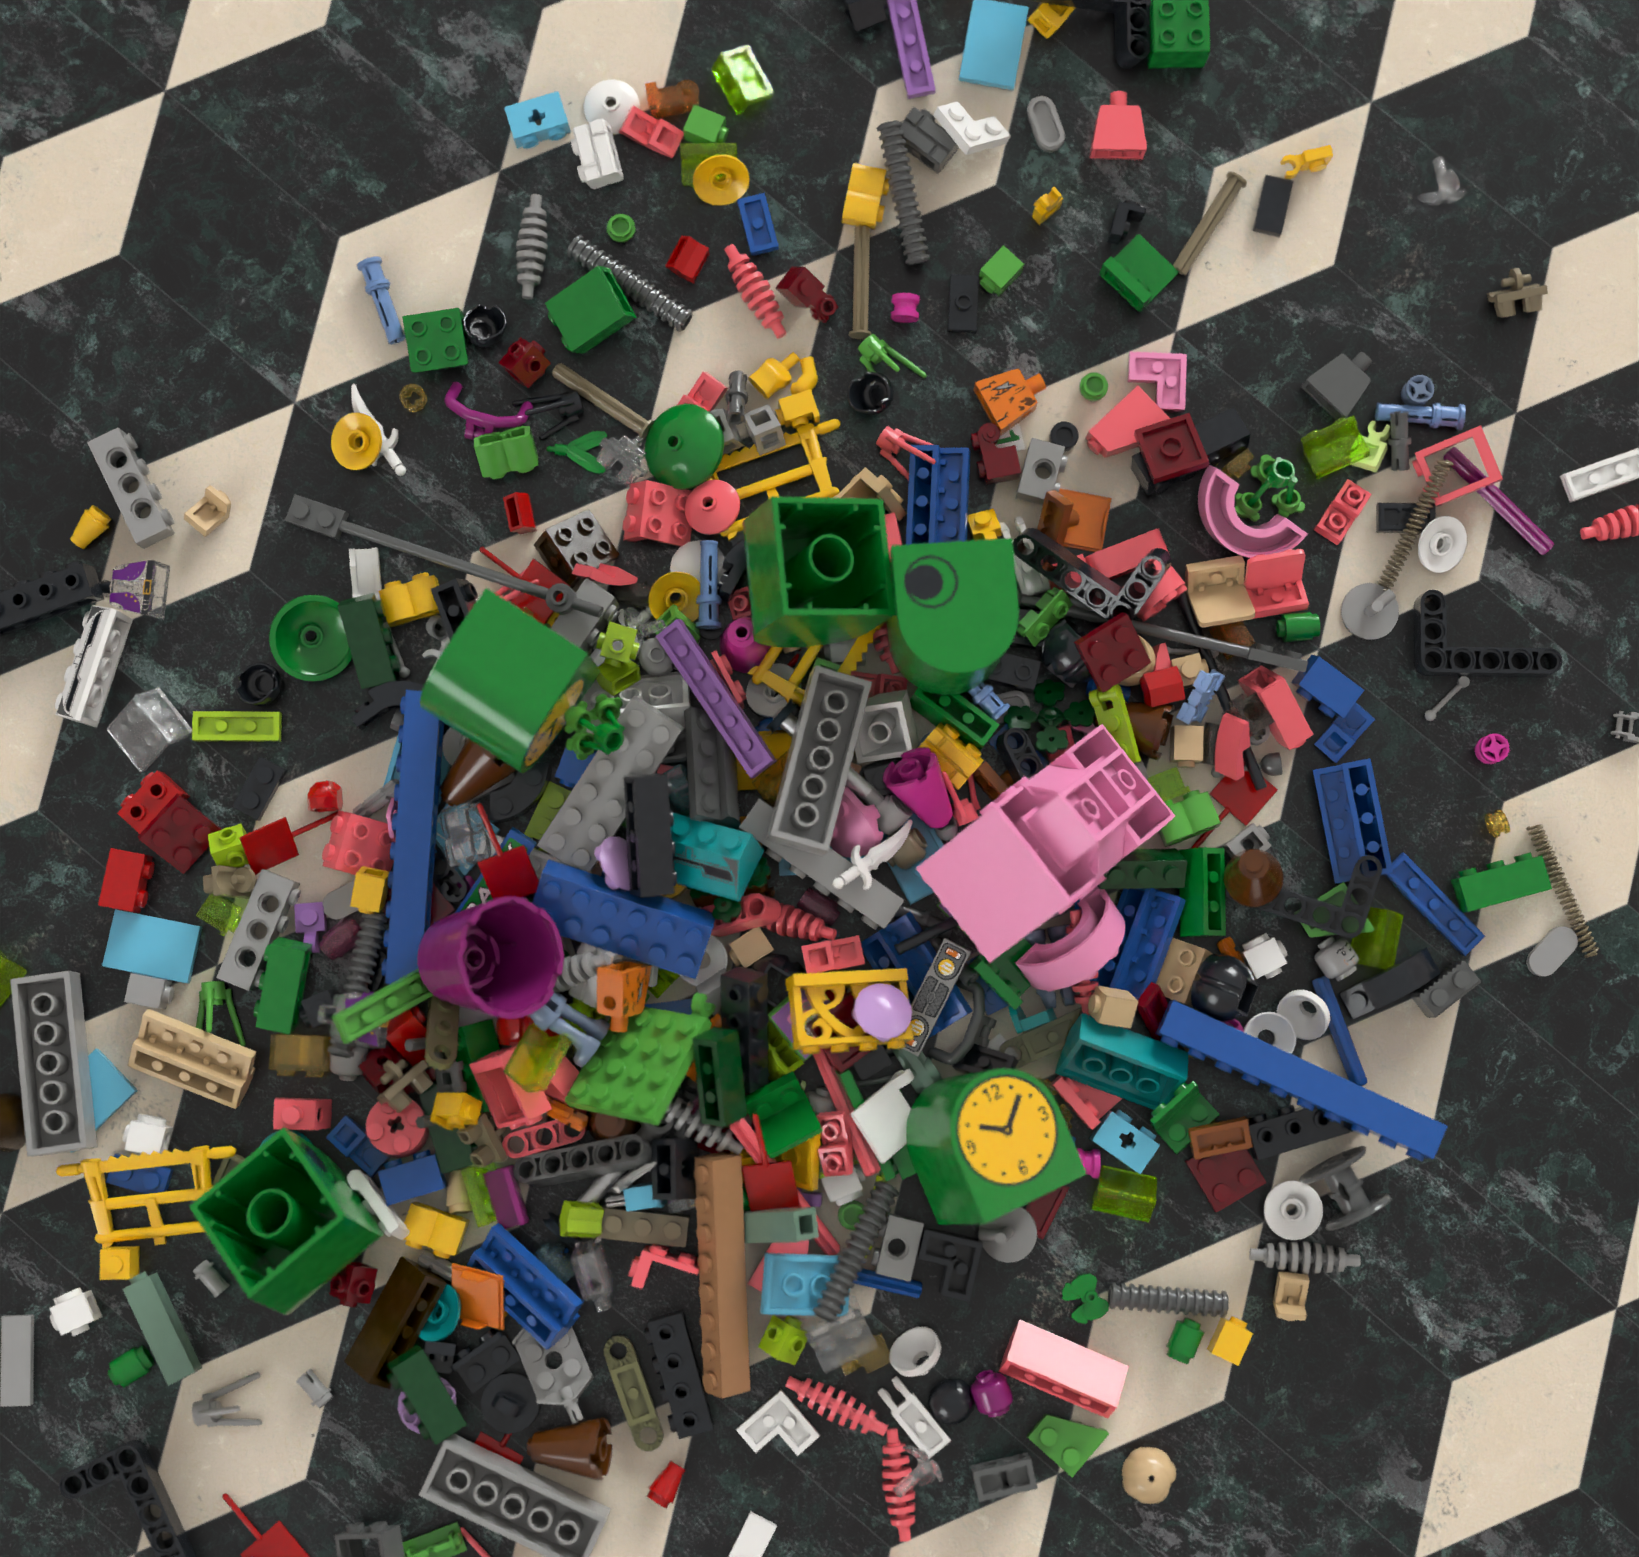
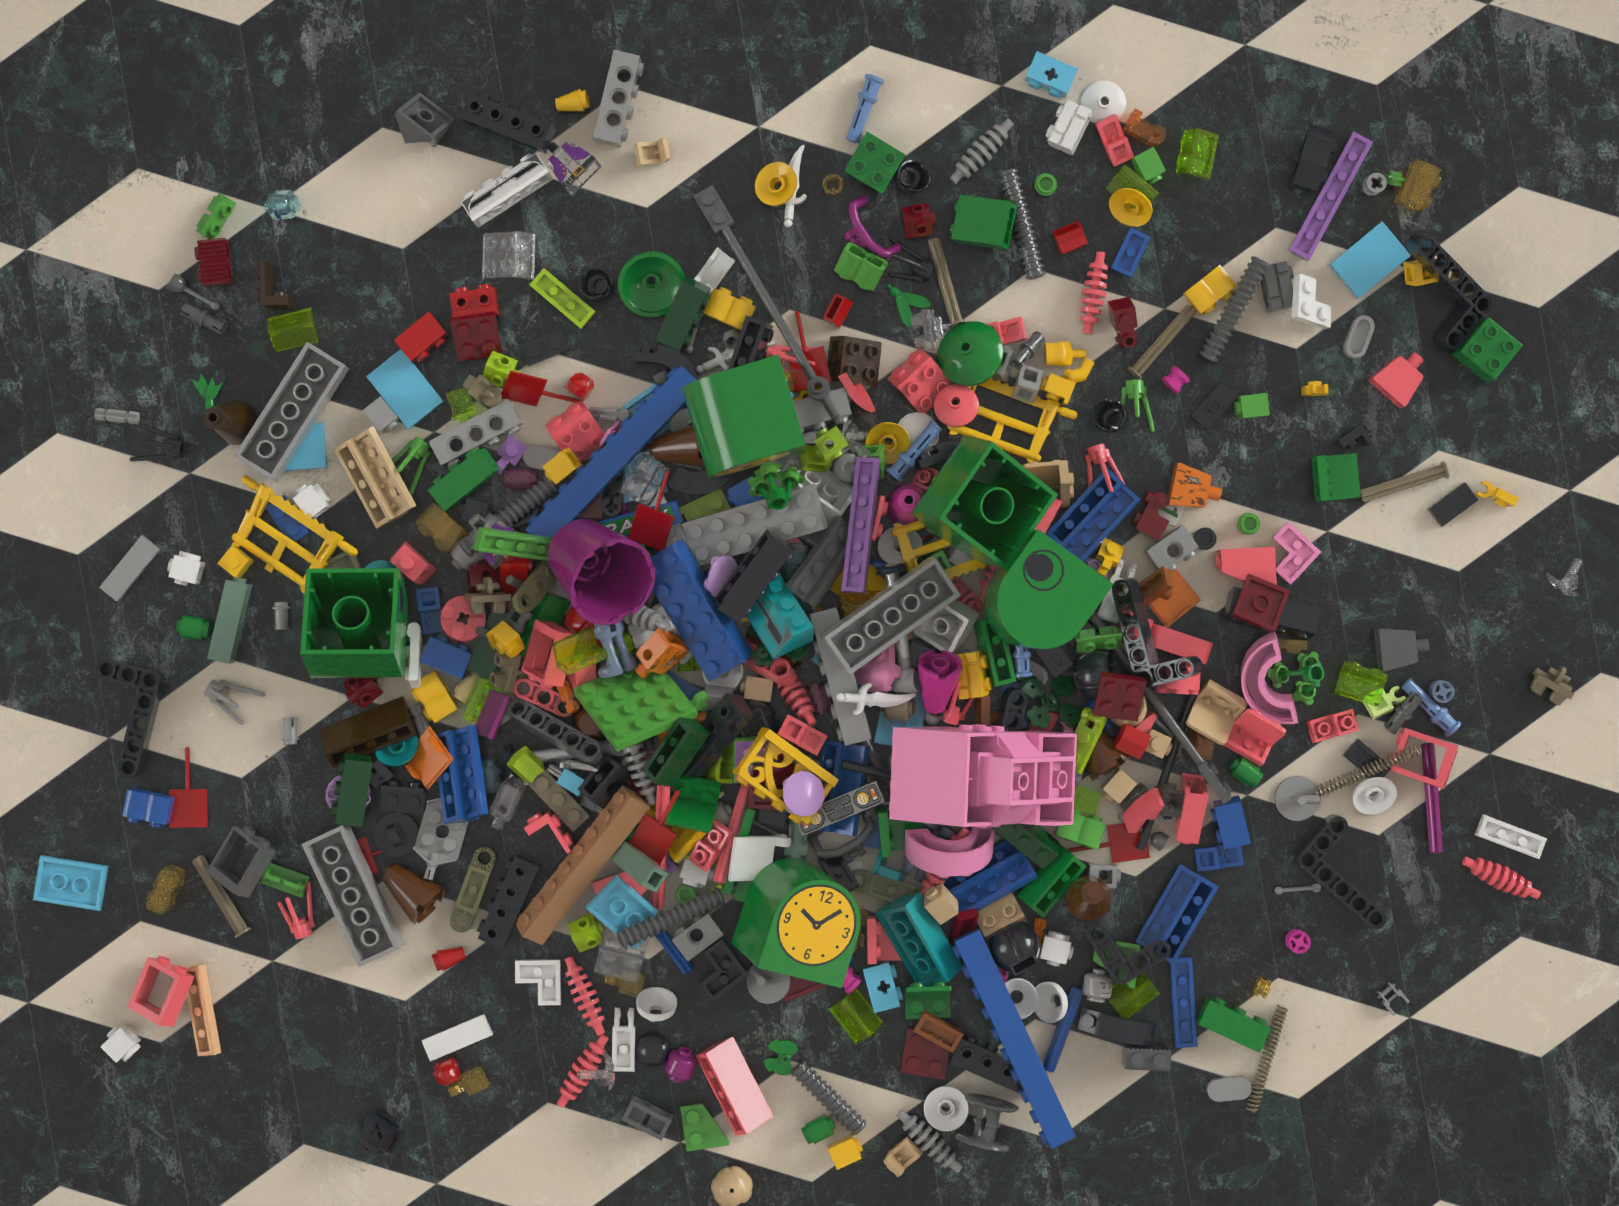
camera: 45 degrees right, 5 degrees up
(1199, 698) = (1156, 762): light blue piece -> none

